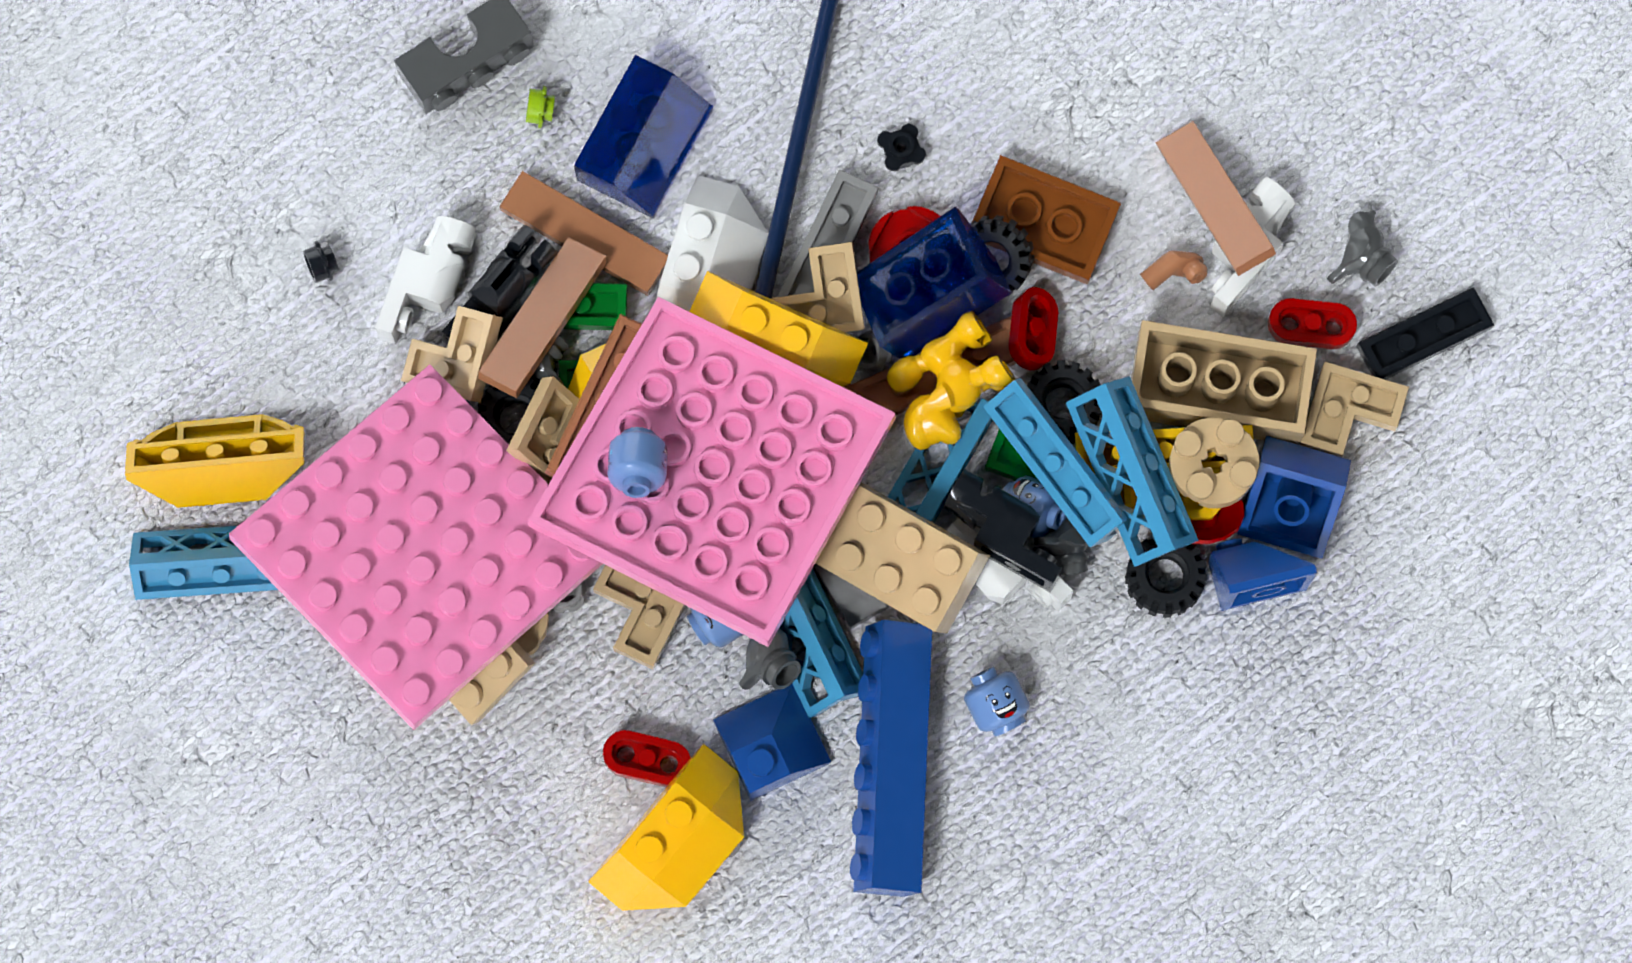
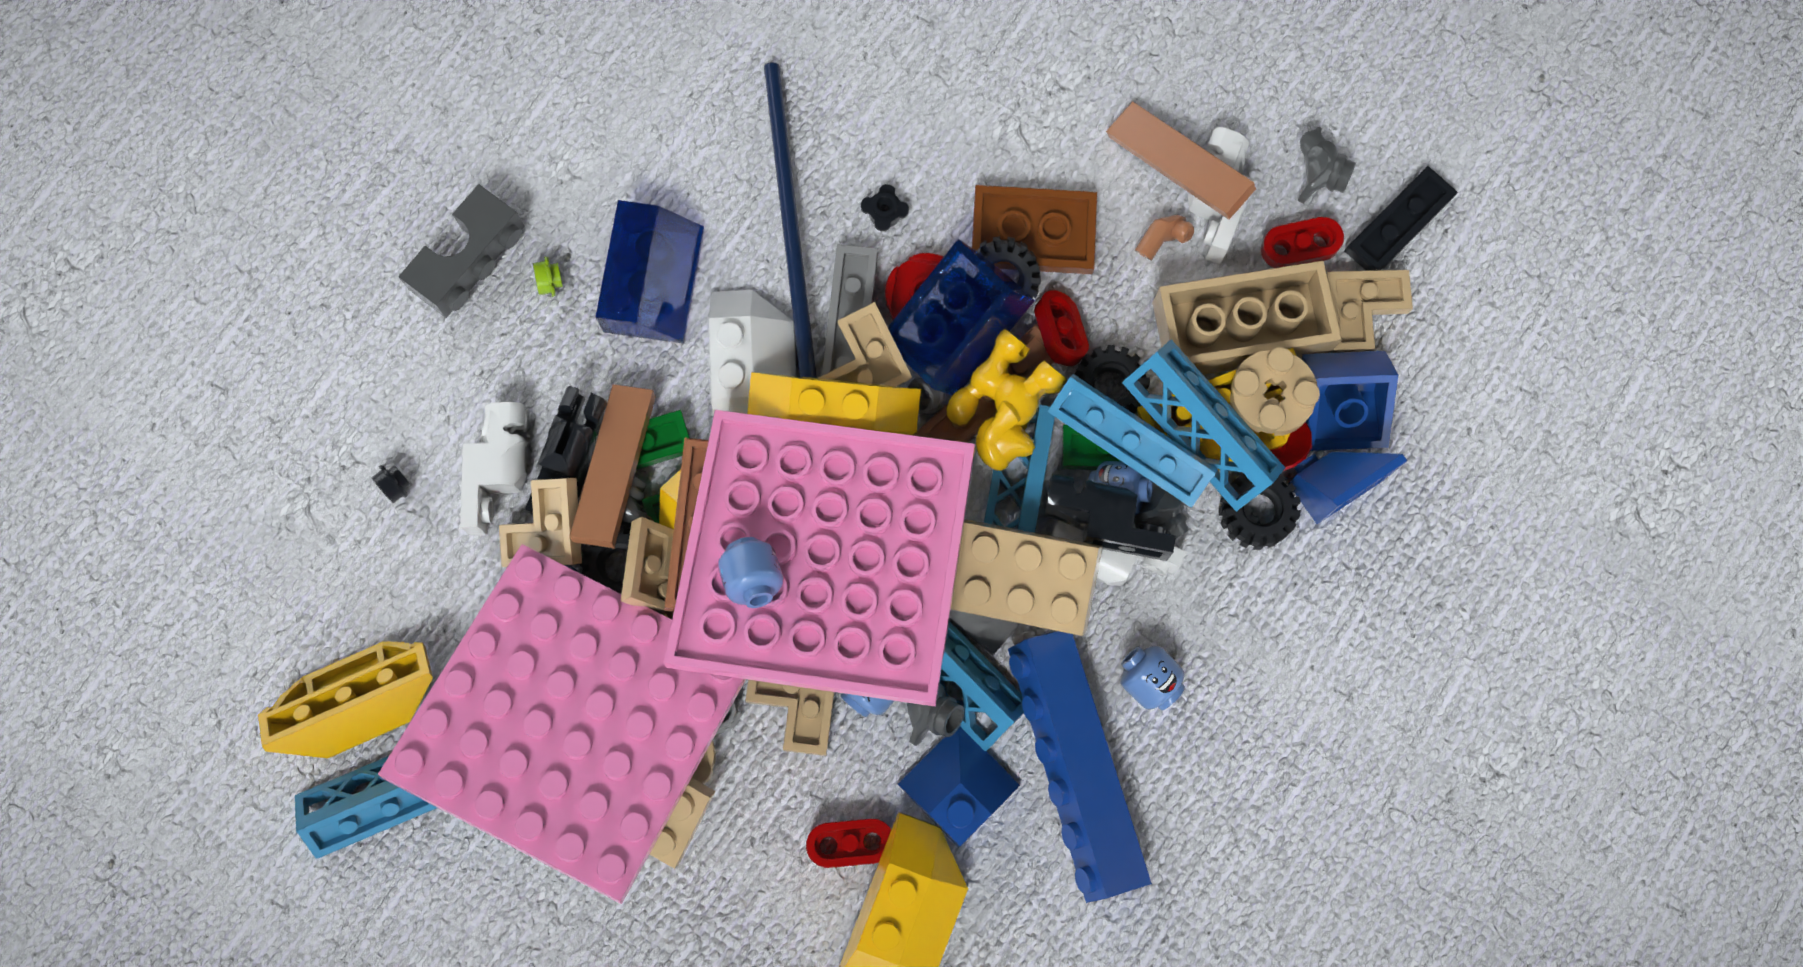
camera: 20 degrees left, 0 degrees up
(561, 217) = (599, 369): nougat tile -> none

